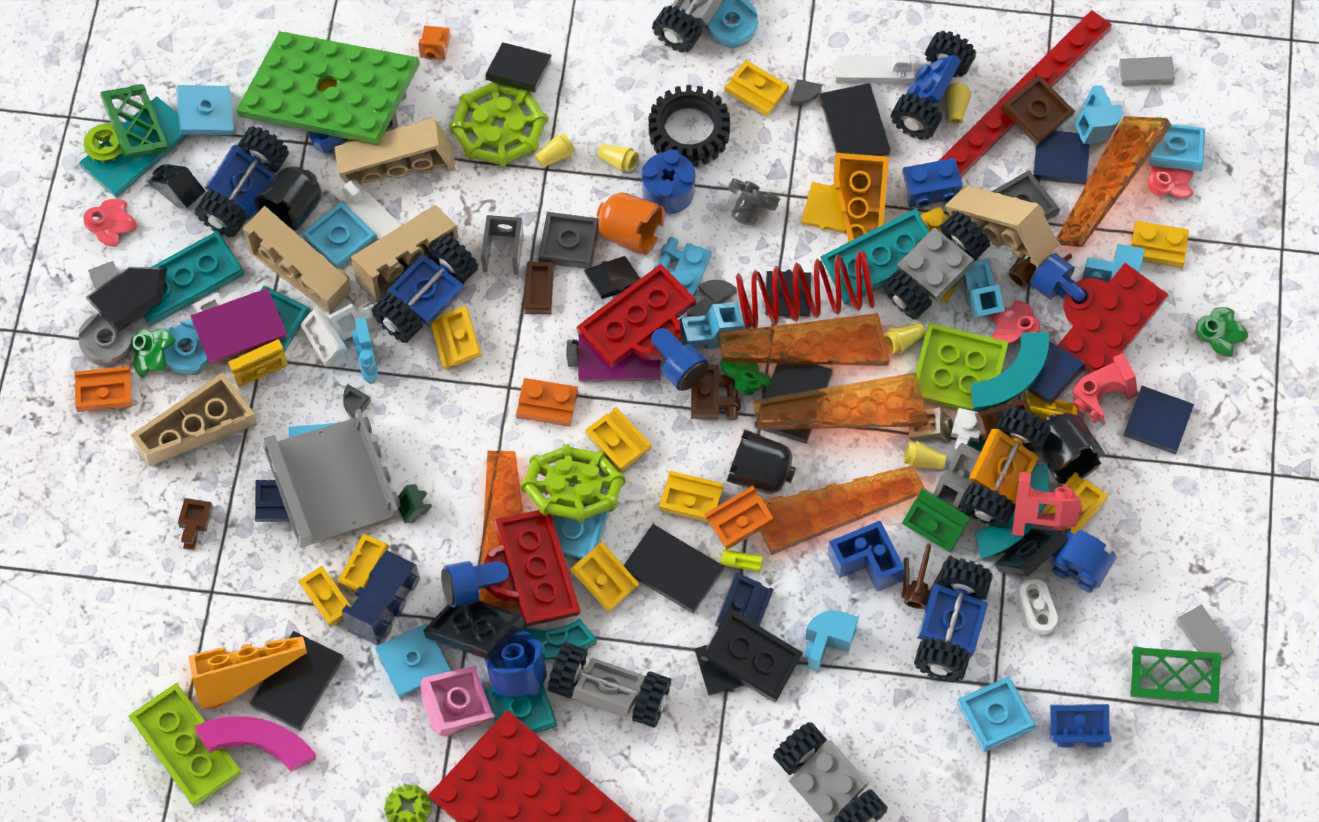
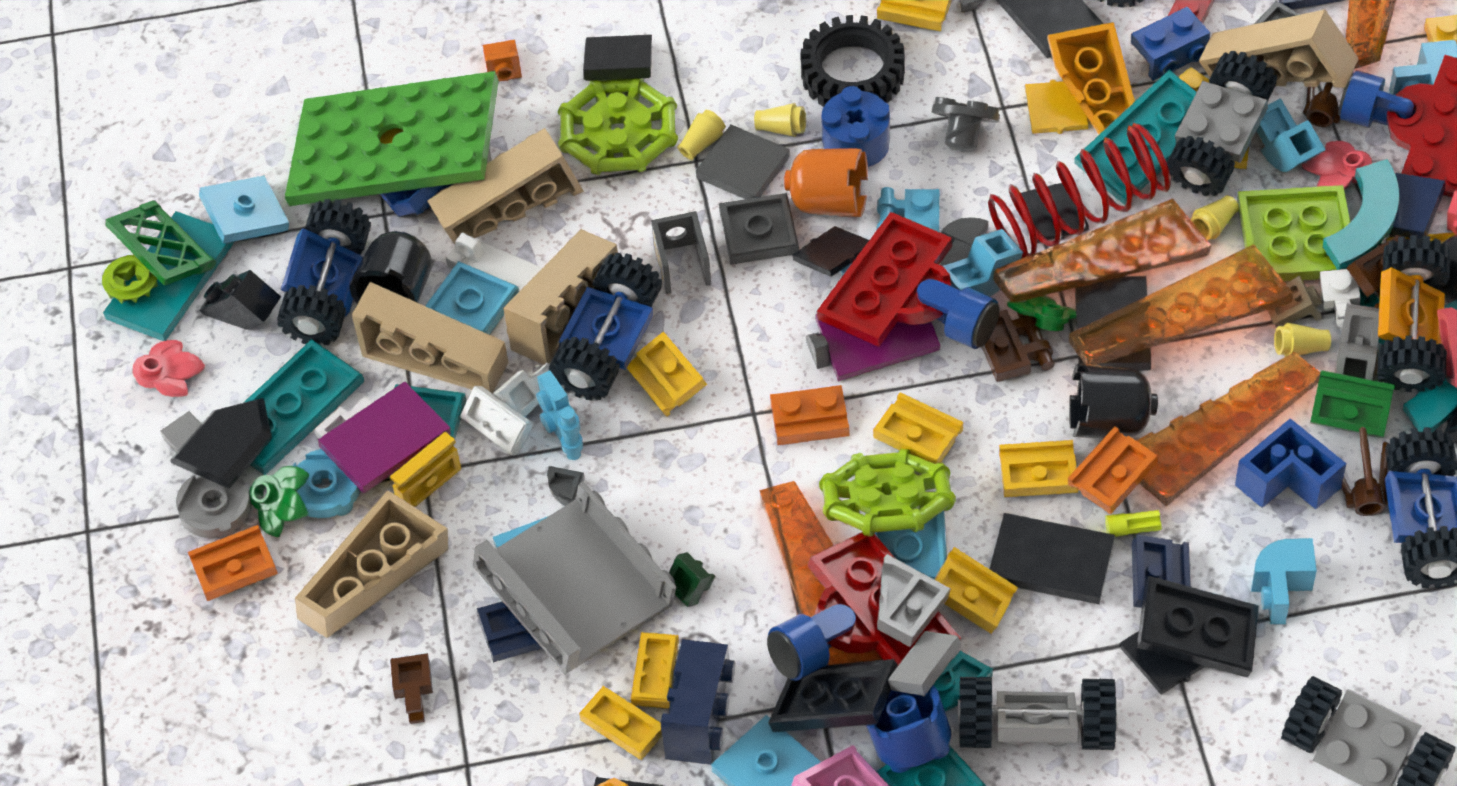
camera: 15 degrees left, 10 degrees down
(539, 288) = (744, 291): reddish brown tile -> none
(541, 625) = (924, 663): none -> light grey tile
(549, 574) = (907, 600): none -> light grey wing
(577, 183) = (742, 163): none -> dark grey tile

